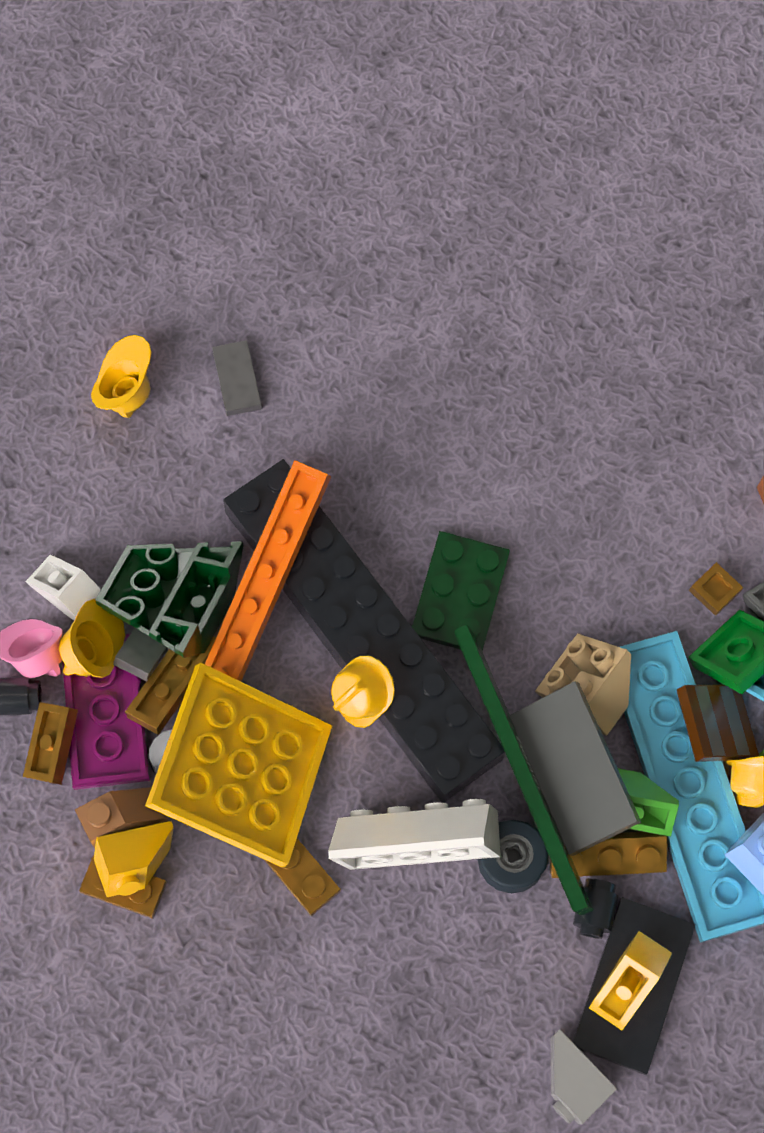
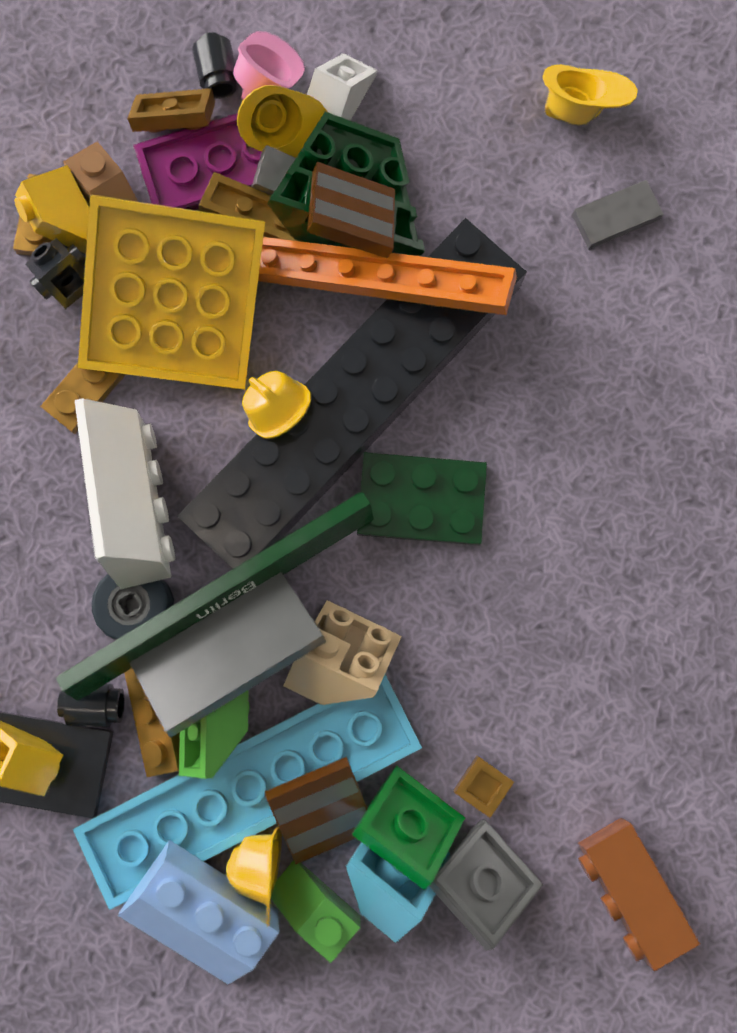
camera: 80 degrees right, 10 degrees up
(190, 869) = (58, 272): none -> black brick
(204, 587) = (351, 210): none -> reddish brown tile

